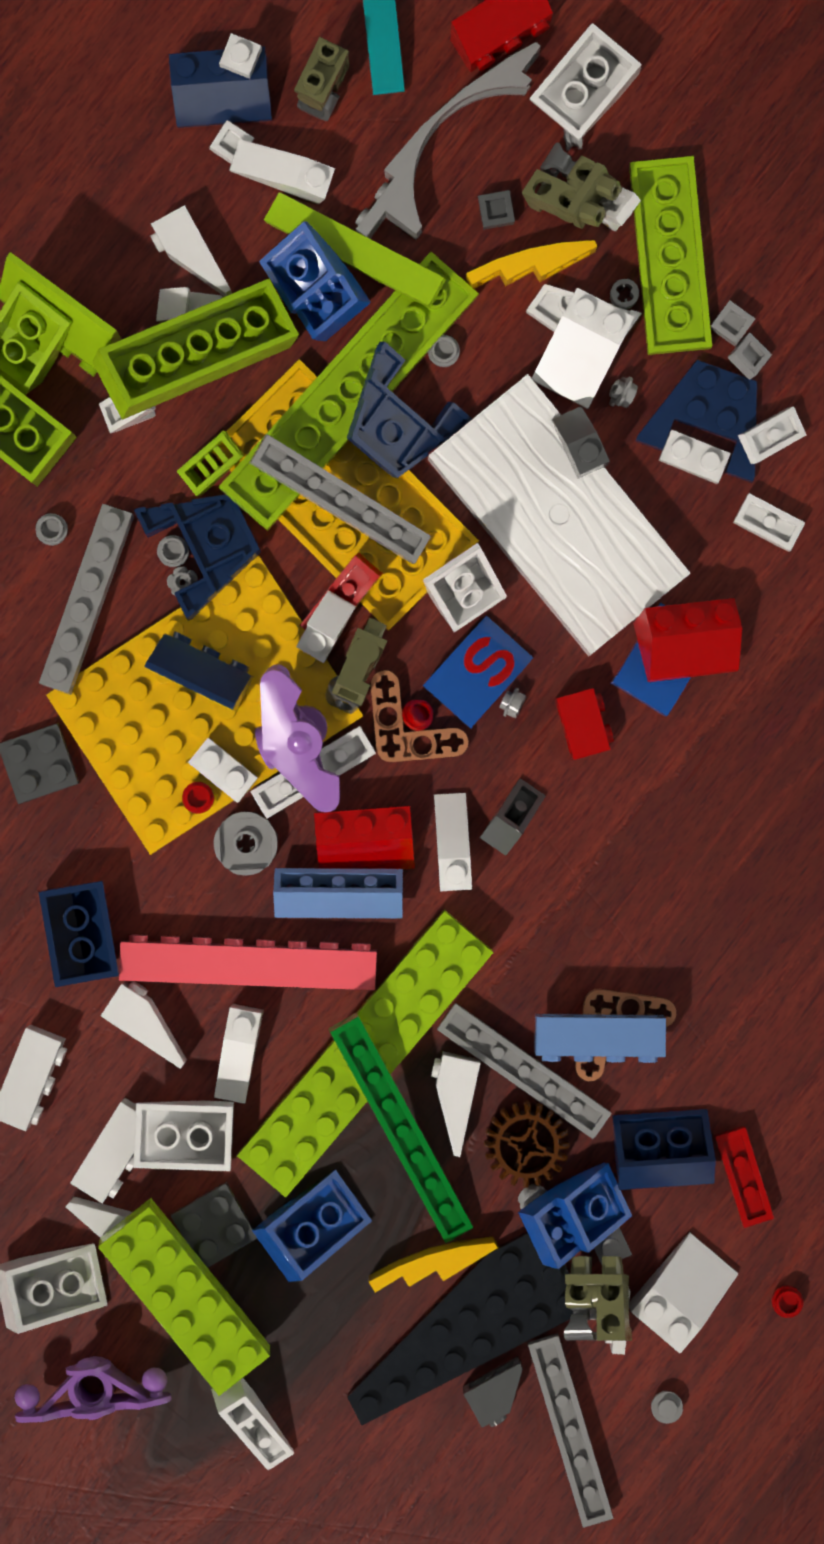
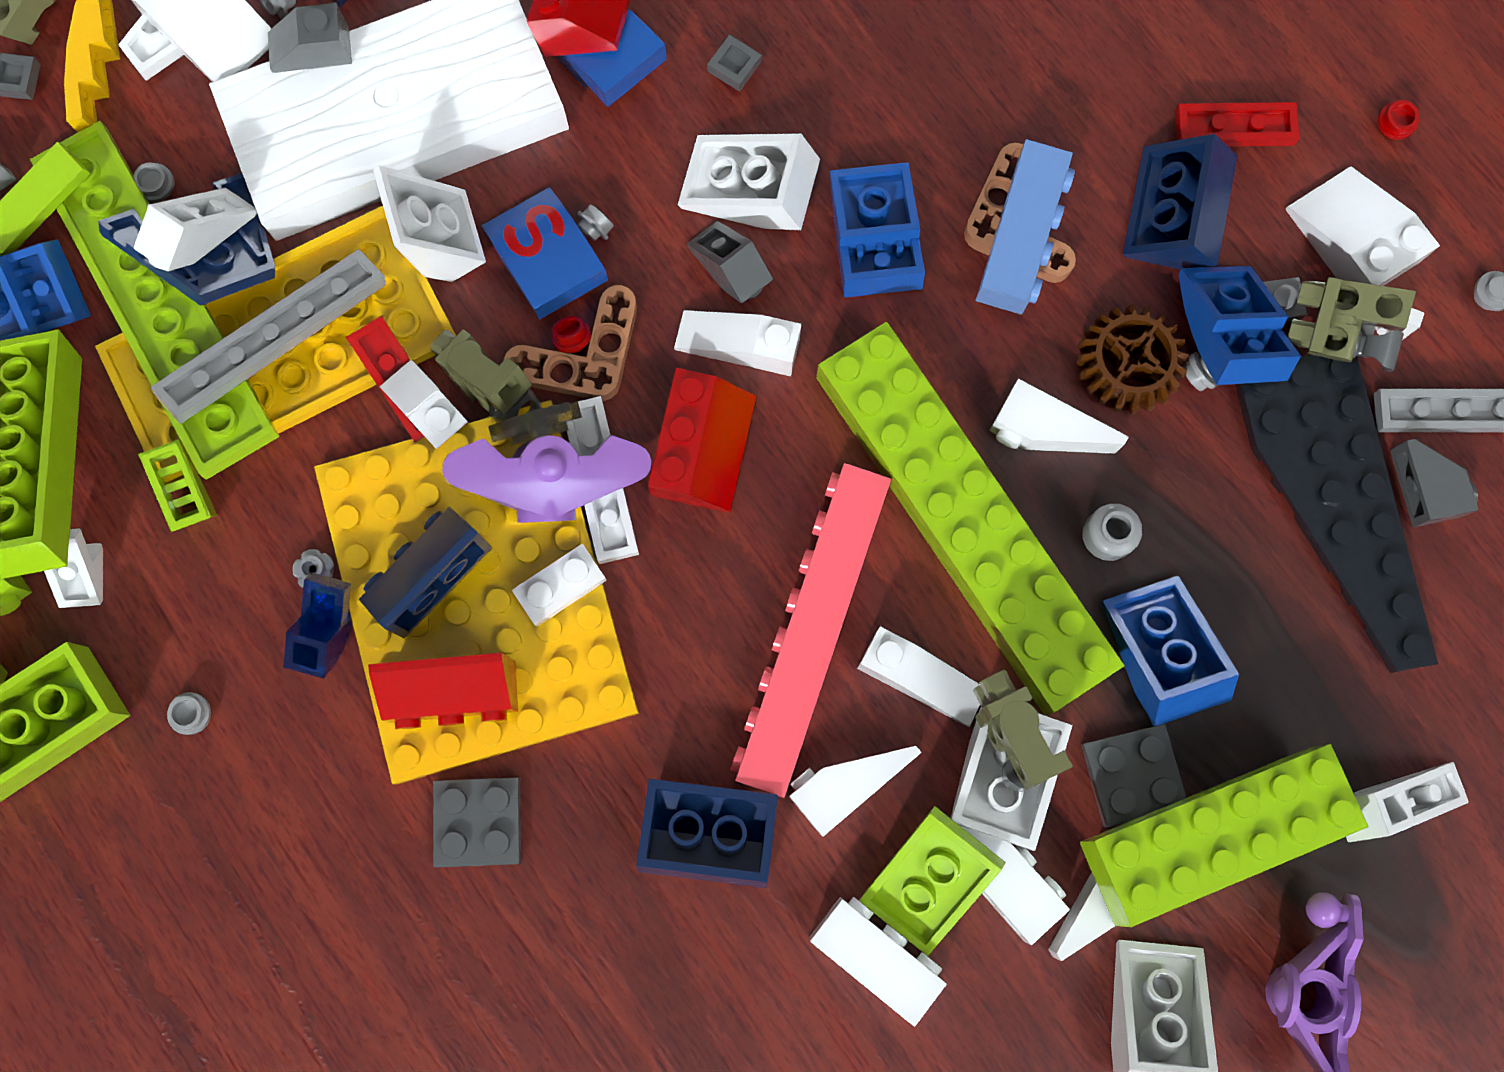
camera: 70 degrees left, 10 degrees down
(86, 599) = (291, 695): light grey plate -> none
(92, 1101) = (932, 881): none -> lime plate
(119, 717) = (445, 689): none -> red slope
(139, 605) = (322, 629): none -> clear blue brick
(173, 551) = (271, 570): light grey plate -> none
(198, 797) = (583, 626): red plate -> none
(206, 1133) = (1015, 731): none -> olive hips
(216, 539) = (271, 510): dark blue wing -> none
(232, 831) = (681, 576): light grey plate -> none
(332, 720) = (536, 423): none -> clear smoke plate
(338, 893) = (759, 492): medium blue brick -> none
(383, 1164) = (1112, 532): none -> light grey head
(400, 1127) = (1069, 494): green plate -> none
(403, 414) = (189, 227): none -> white slope
(444, 1259) = (1250, 497): yellow slope -> none
(524, 1070) = (1040, 337): light grey plate -> none
(573, 921) = (876, 230): none -> blue slope
(583, 723) = (644, 149): red brick -> none
(583, 812) = (751, 179): none -> white slope
(677, 770) = (734, 63): none -> dark grey plate

